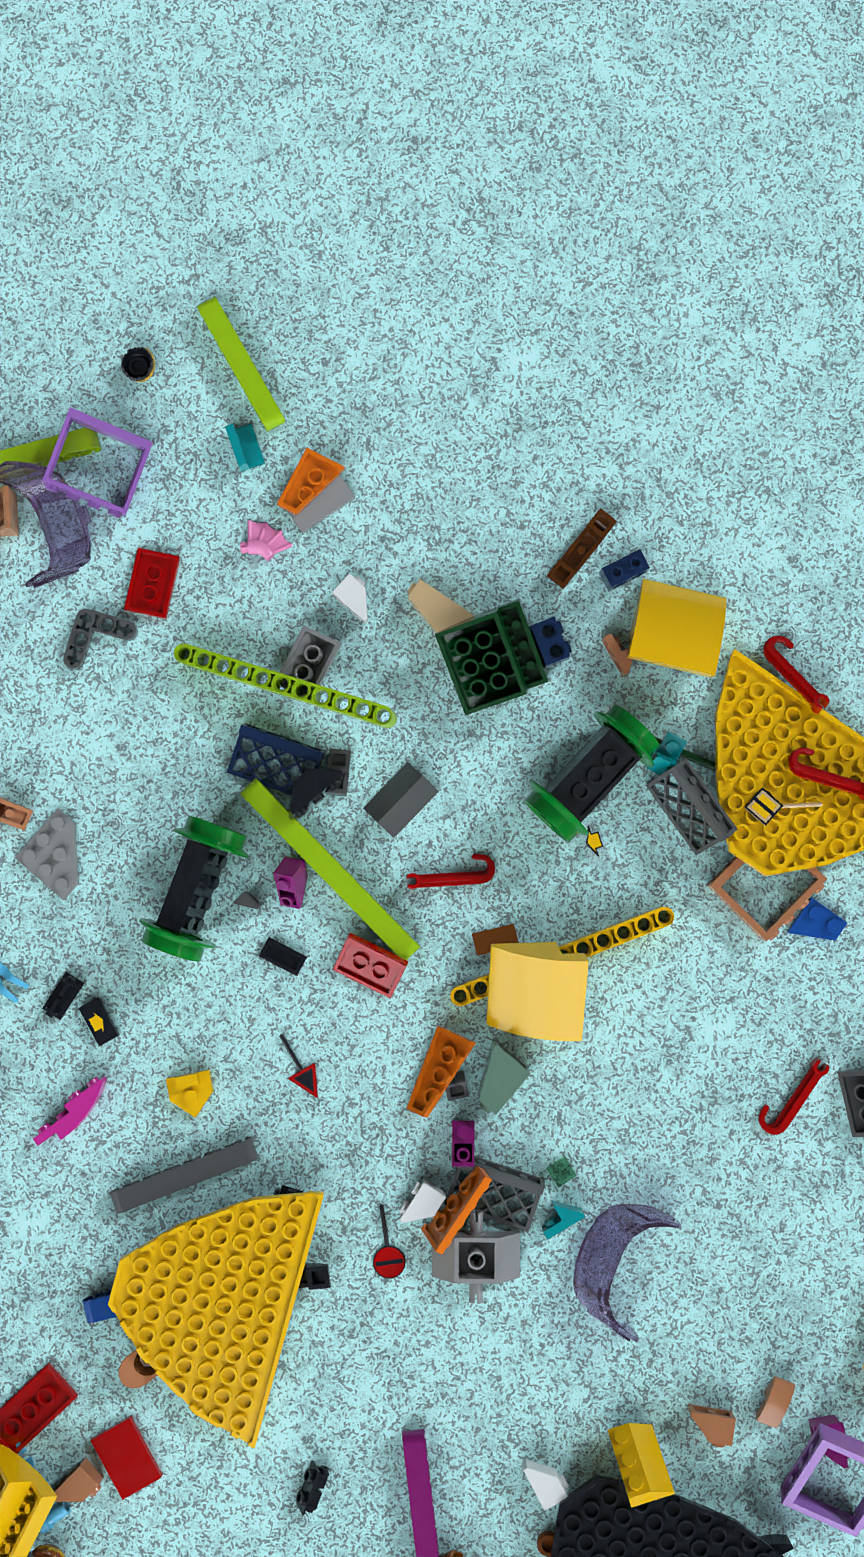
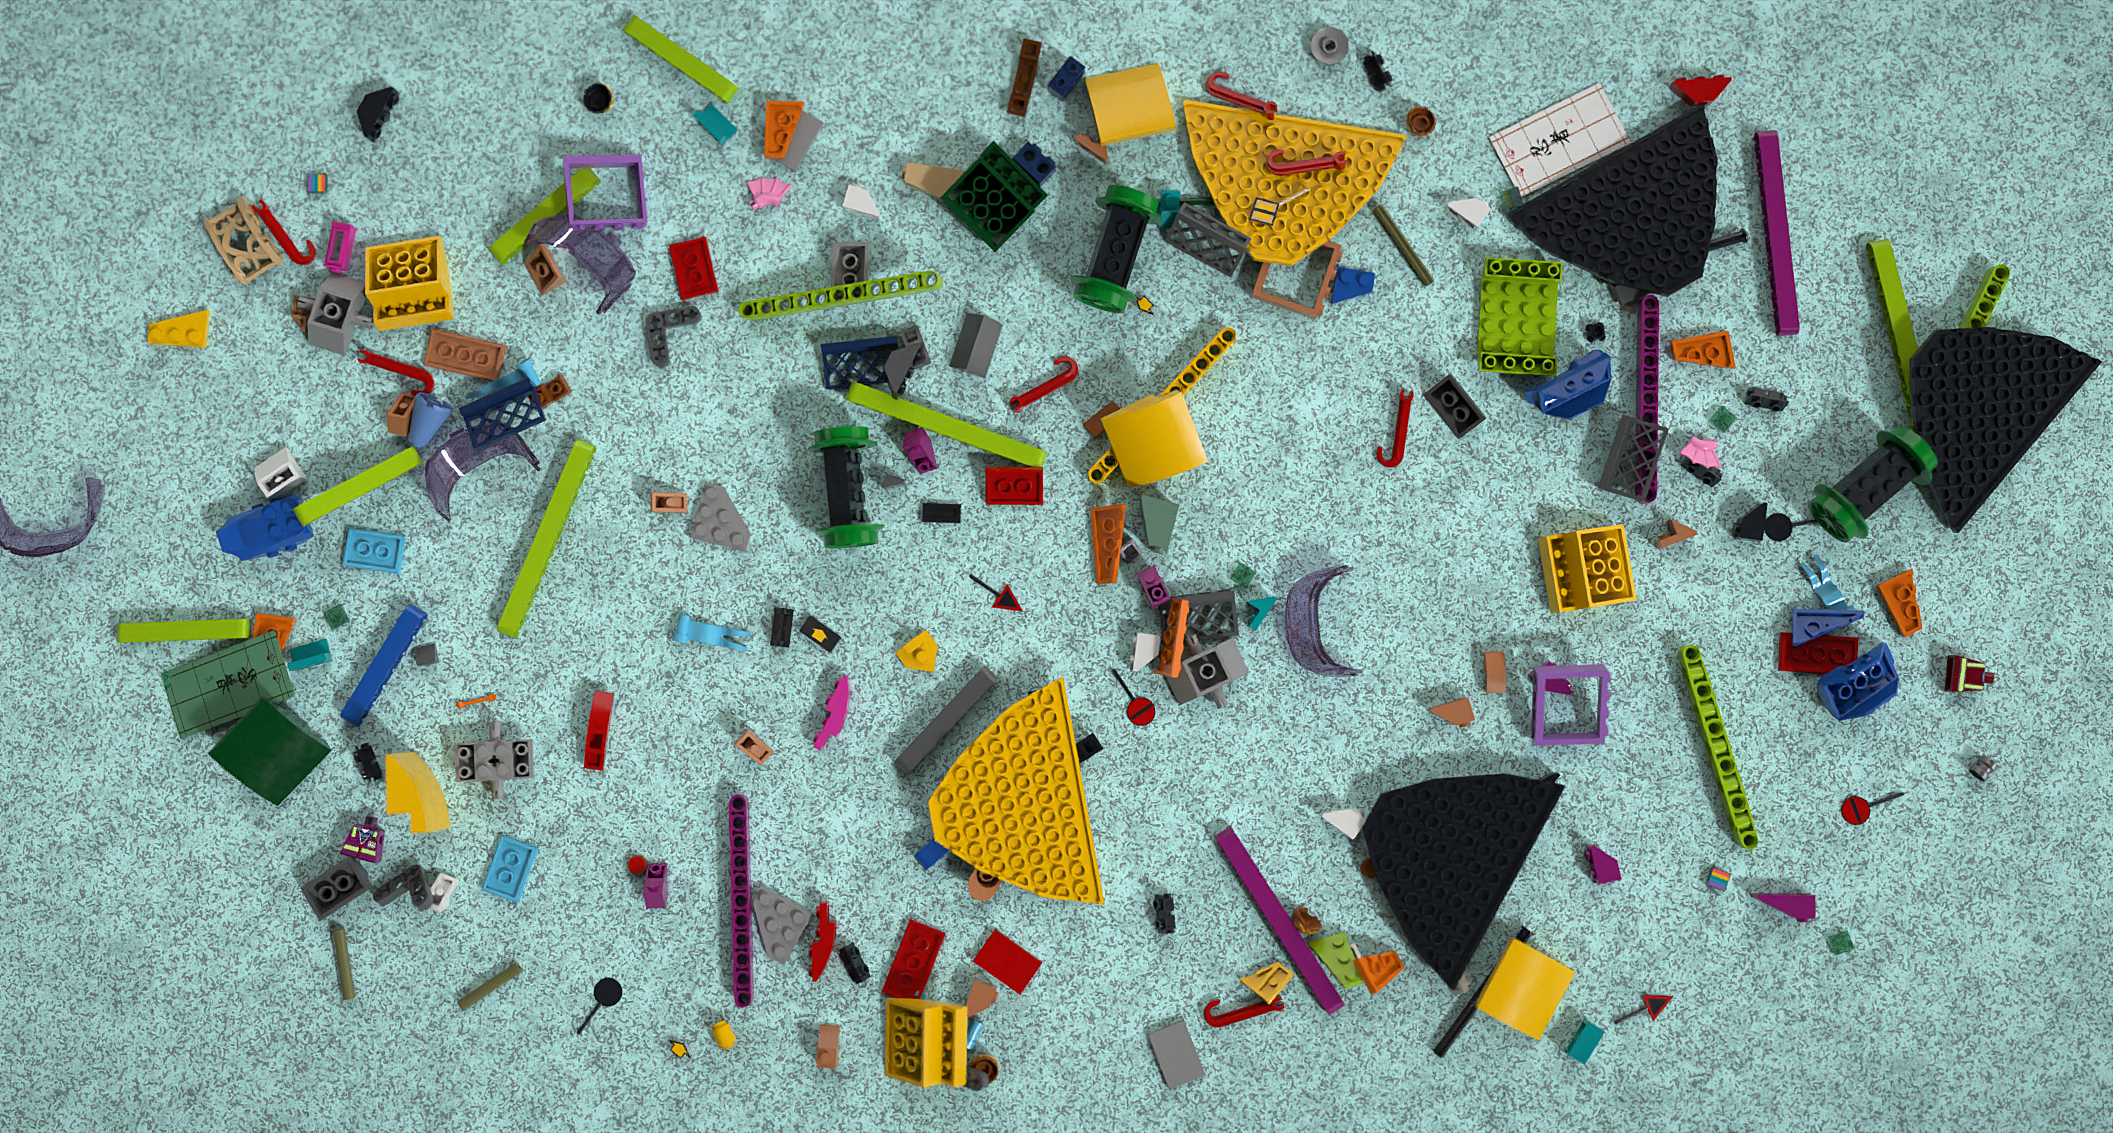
camera: 20 degrees left, 0 degrees up
(640, 1463) = (1408, 765): yellow slope -> none

